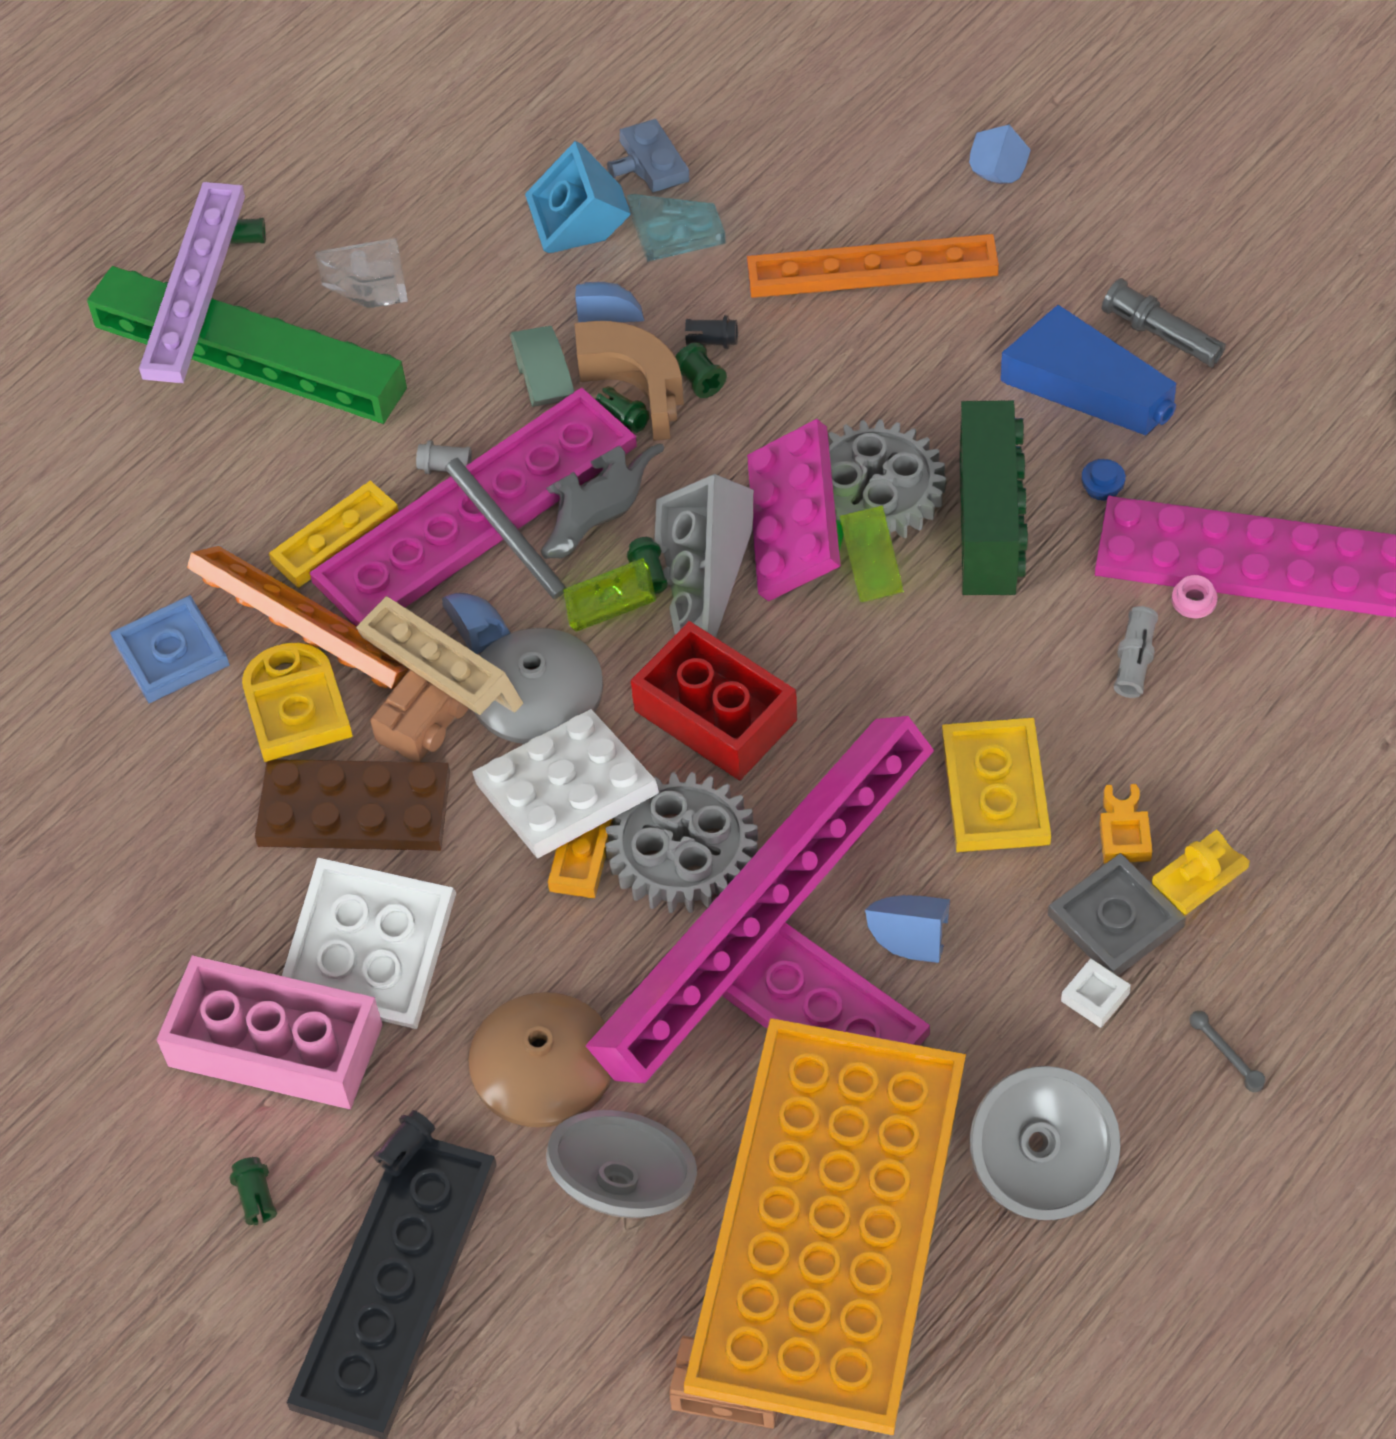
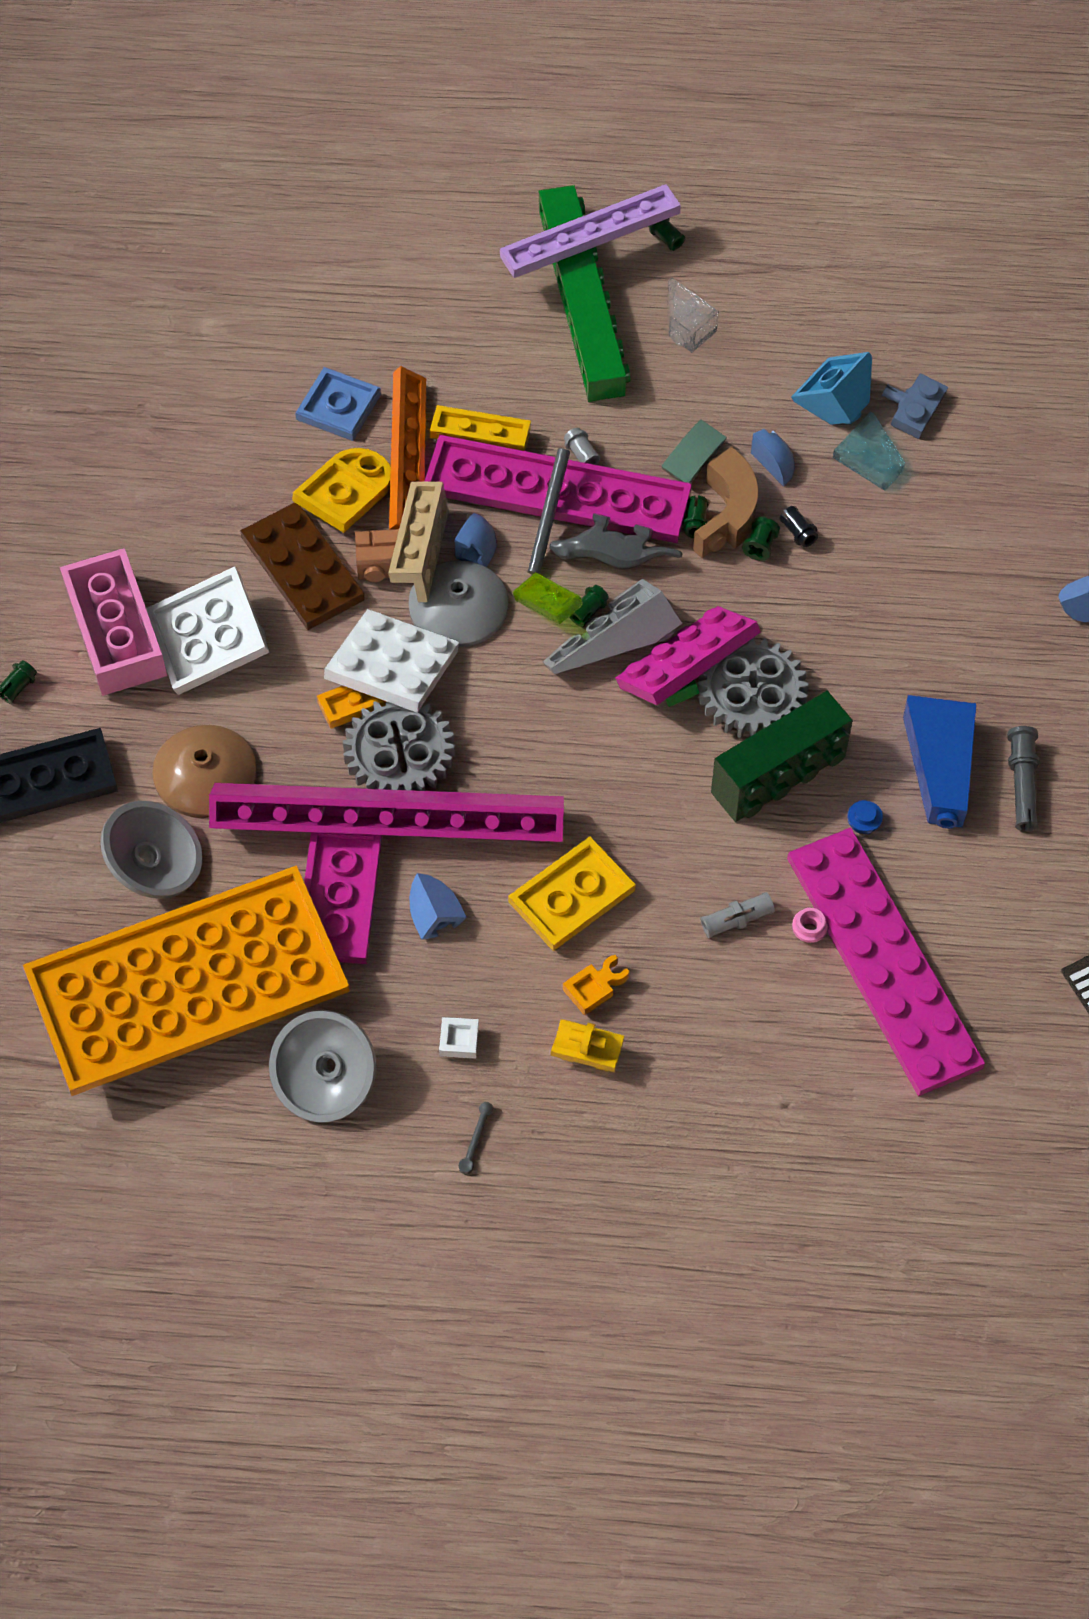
camera: 50 degrees right, 5 degrees up
(405, 1142) = (87, 732): black pin -> none
(714, 700) = (508, 700): red brick -> none
(871, 554) = (687, 719): clear neon green plate -> none
(872, 265) = (930, 582): orange plate -> none
(1116, 915) = (524, 1017): flat silver plate -> none

